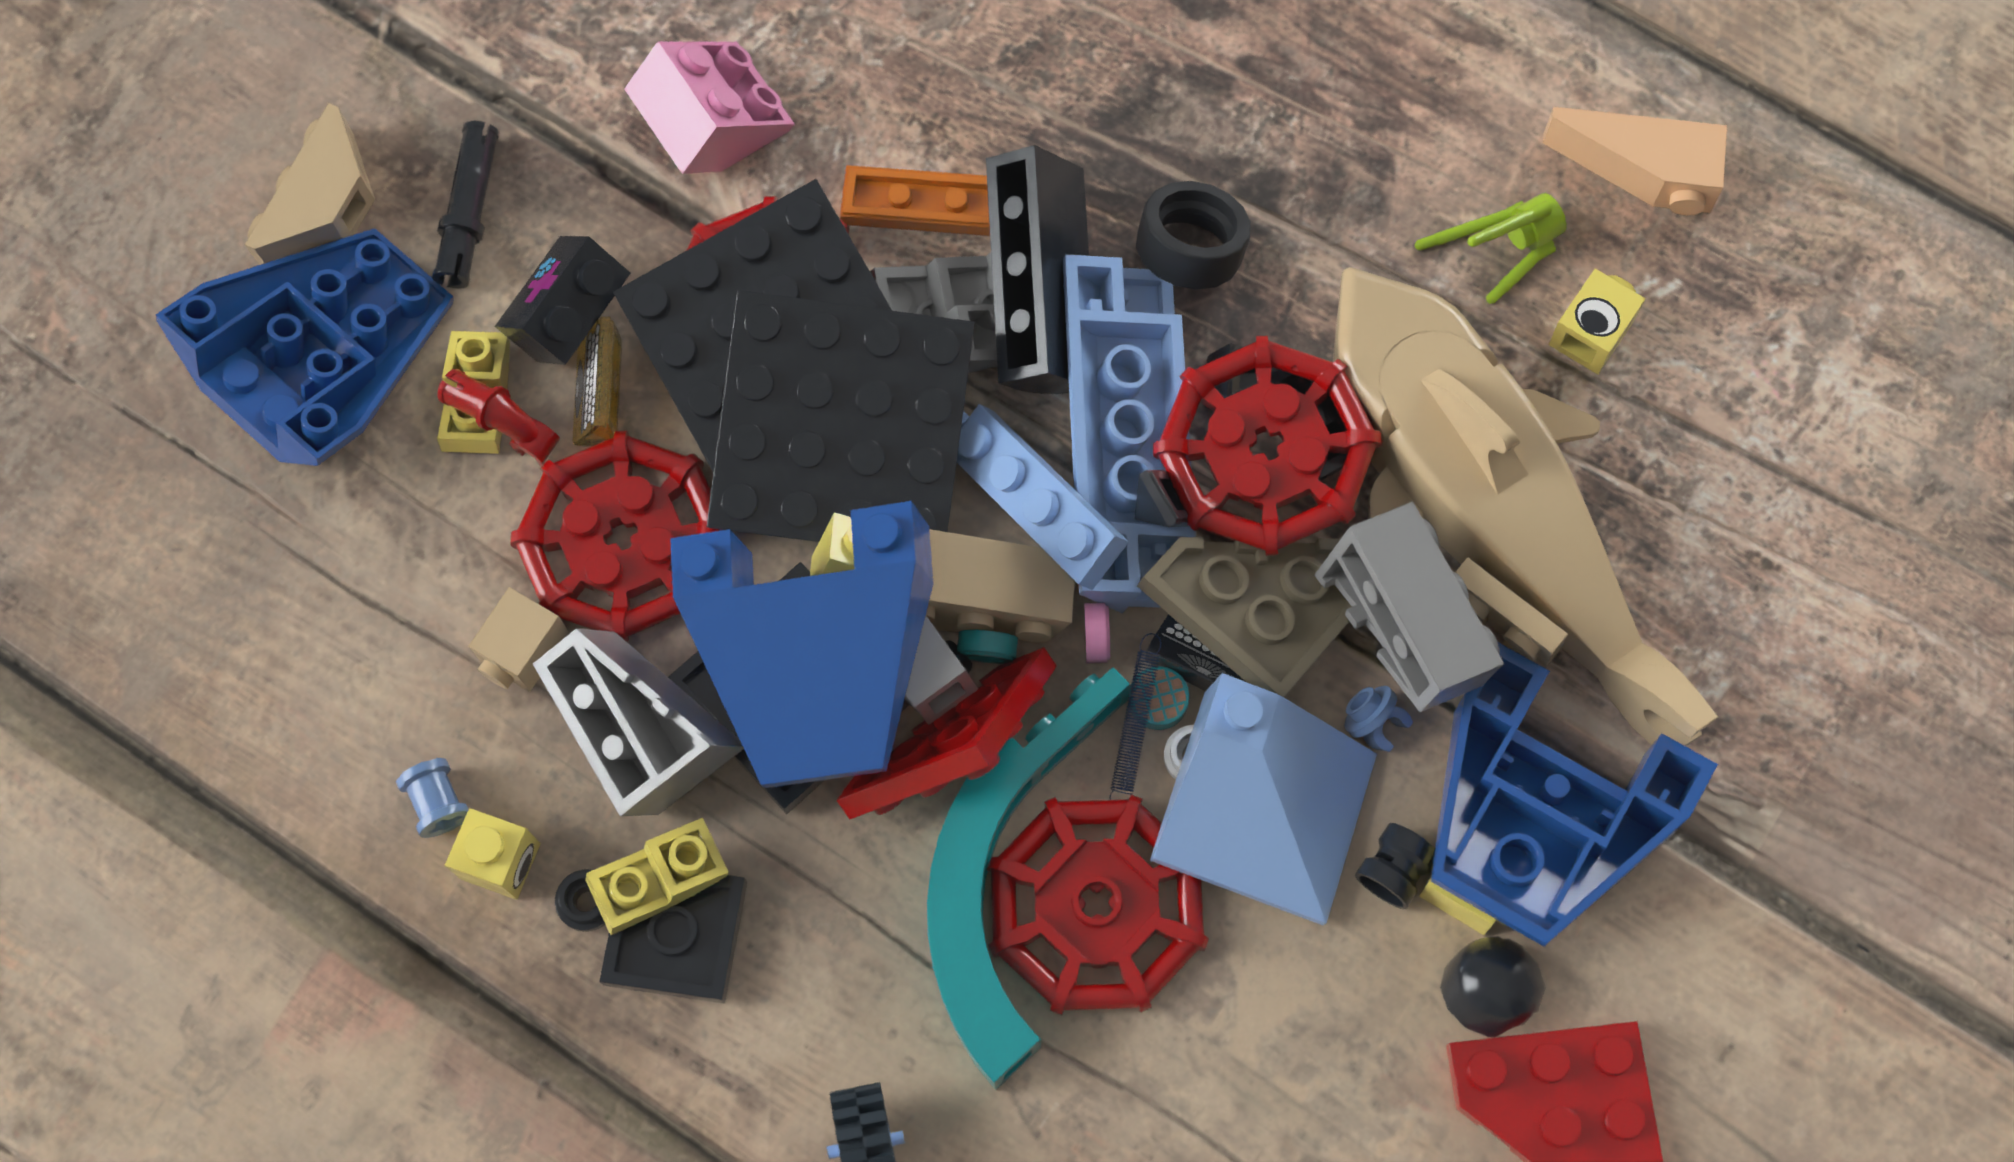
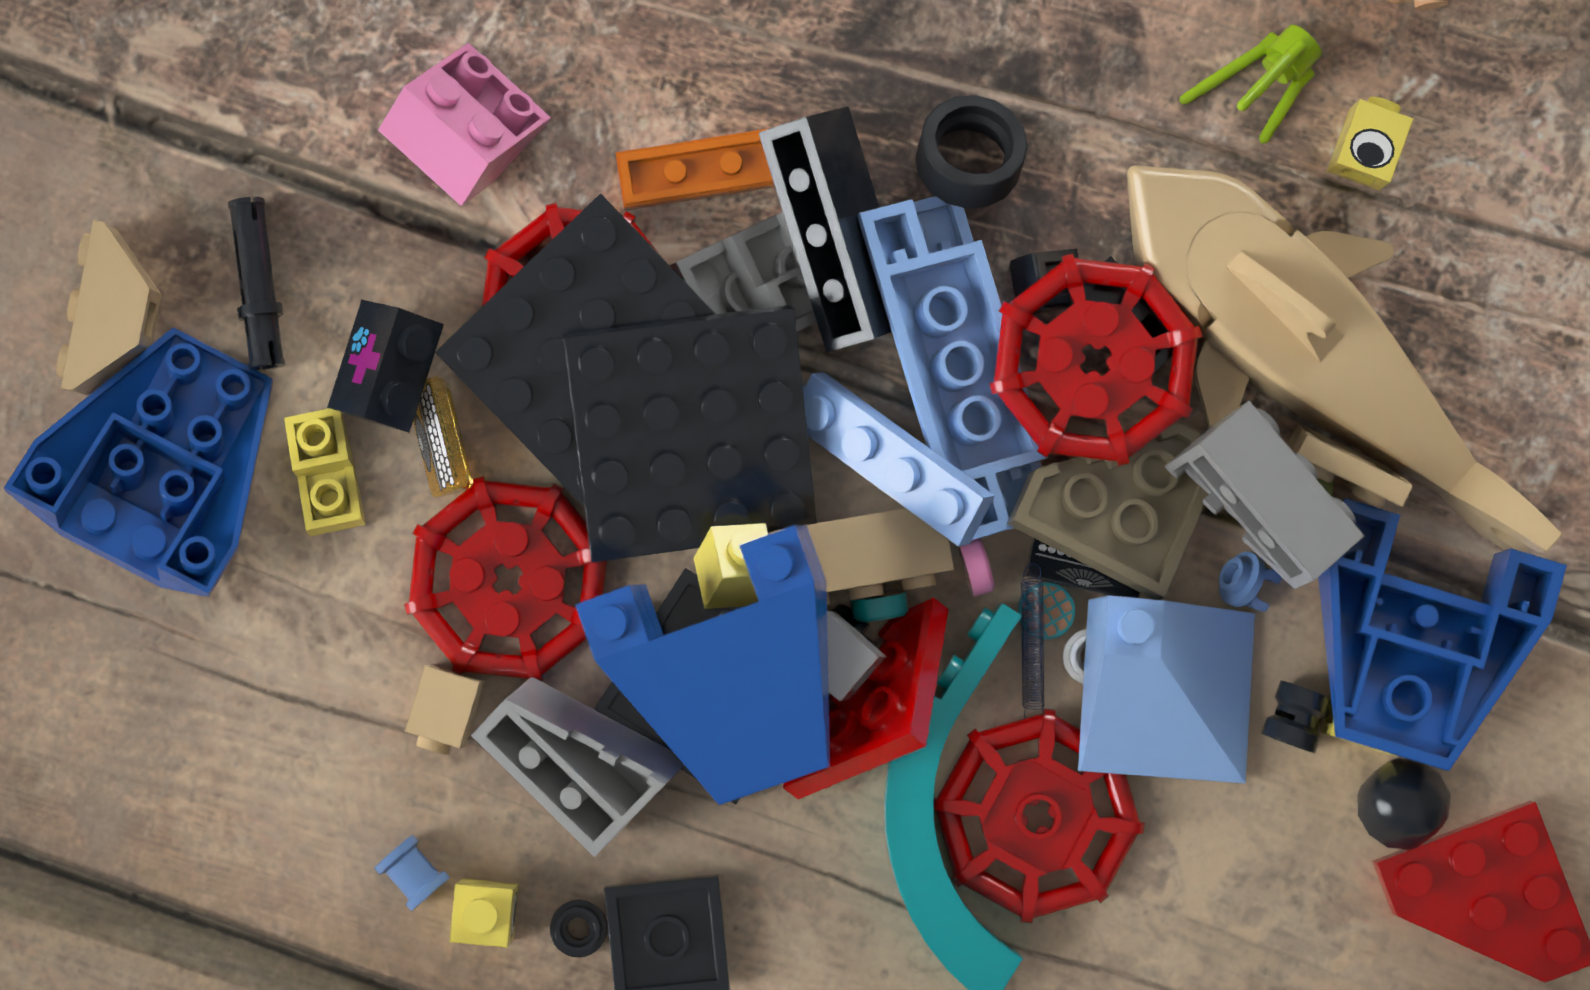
camera: 20 degrees left, 15 degrees up
(497, 411) = (357, 495): red piece -> none
(656, 877) = (641, 898): light yellow slope -> none
(1158, 500) = (1010, 442): black slope -> none

